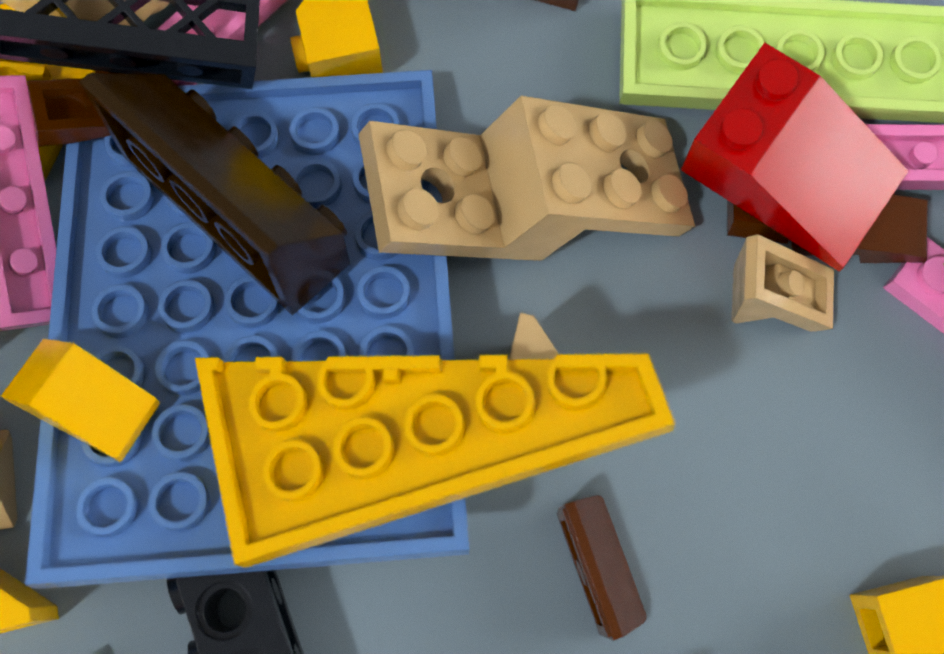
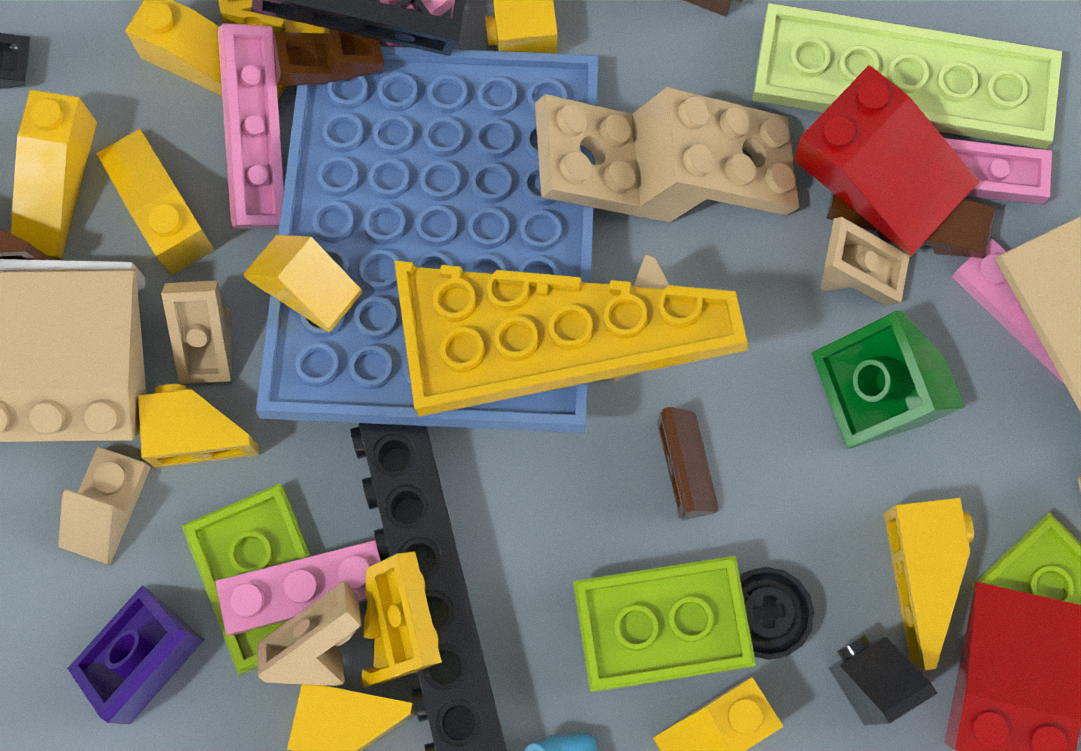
camera: 10 degrees right, 0 degrees up
(222, 184) = (424, 133): dark brown slope -> none
(833, 430) = (885, 380): none -> green slope

